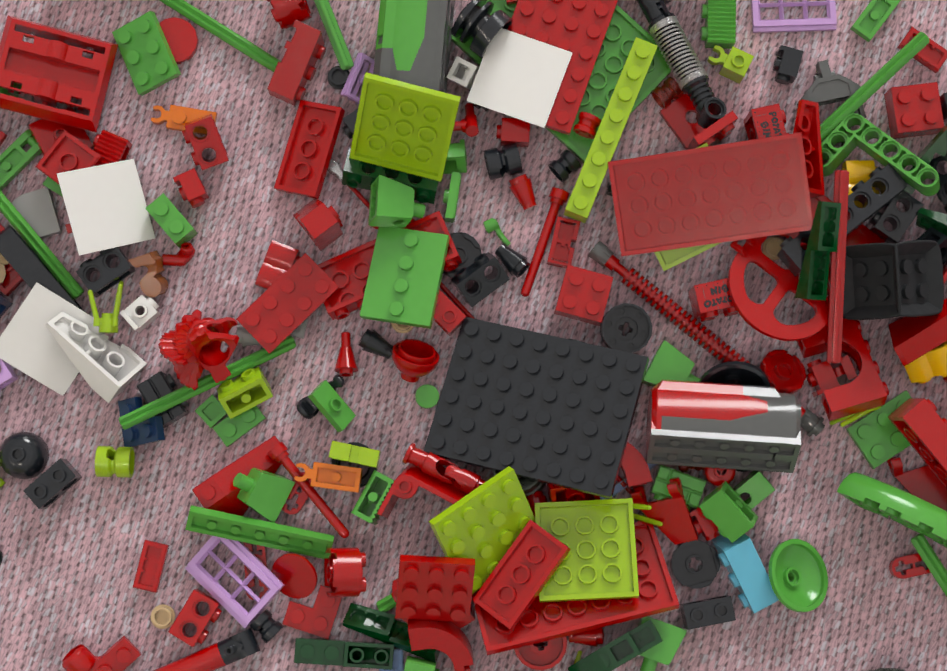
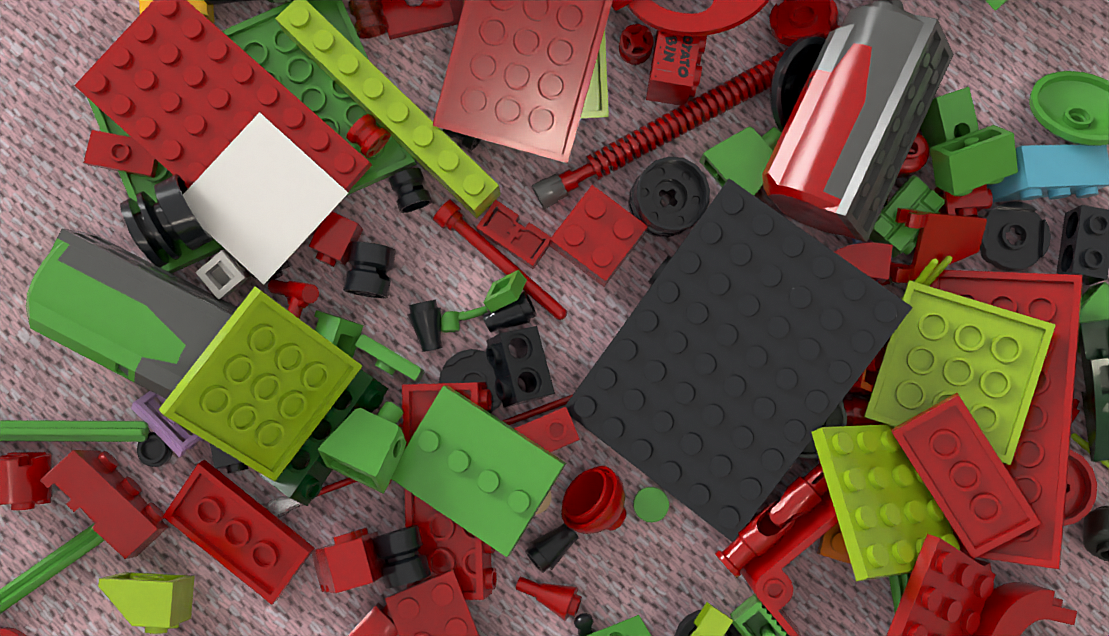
camera: 65 degrees left, 0 degrees up
(249, 115) = (151, 599): none -> lime slope
(335, 252) = (401, 556): none -> black wheel
(483, 211) = (427, 324): none -> black cone
(523, 191) = (421, 259): red cone -> none
(524, 250) = (505, 291): none -> bright green tile
(721, 265) = (639, 37): none -> red wheel

